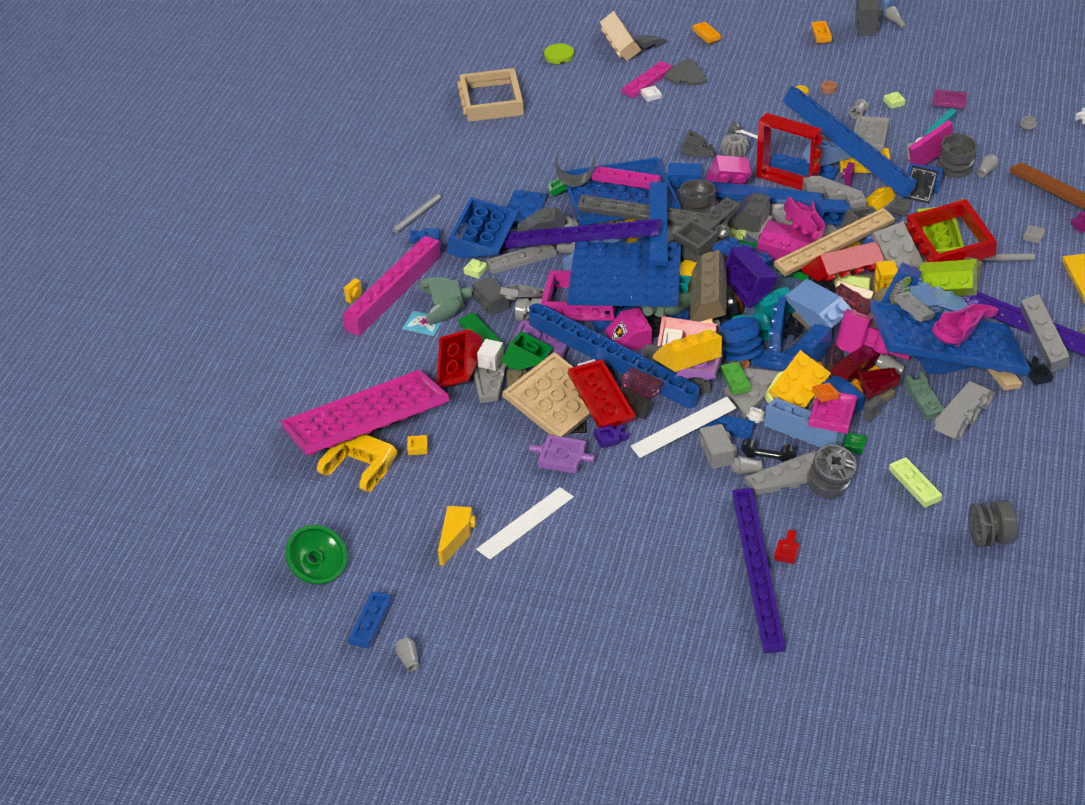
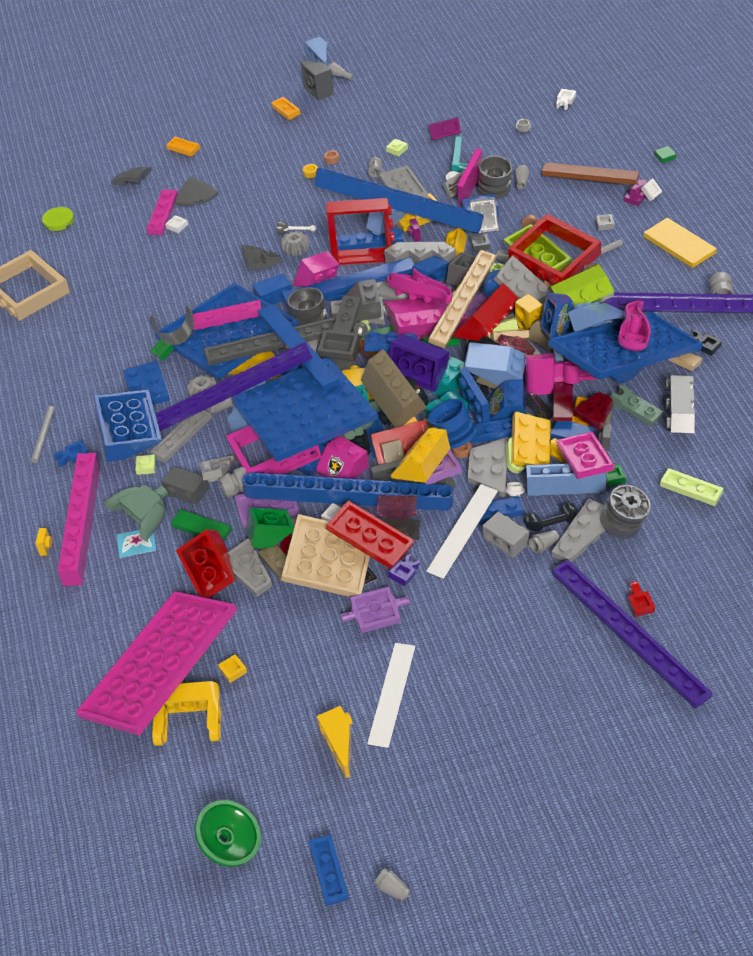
camera: 30 degrees left, 5 degrees up
(490, 354) = (237, 544): white brick -> none
(543, 219) = (180, 390): dark grey slope -> none
(619, 36) = (107, 179): tan brick -> none
(735, 378) = (474, 463): bright green plate -> none
(825, 392) = (568, 441): orange tile -> none
(887, 361) = (586, 390): light grey cone -> none
(914, 306) = (587, 329): light grey plate -> none
(1045, 333) = (692, 306): light grey brick -> none

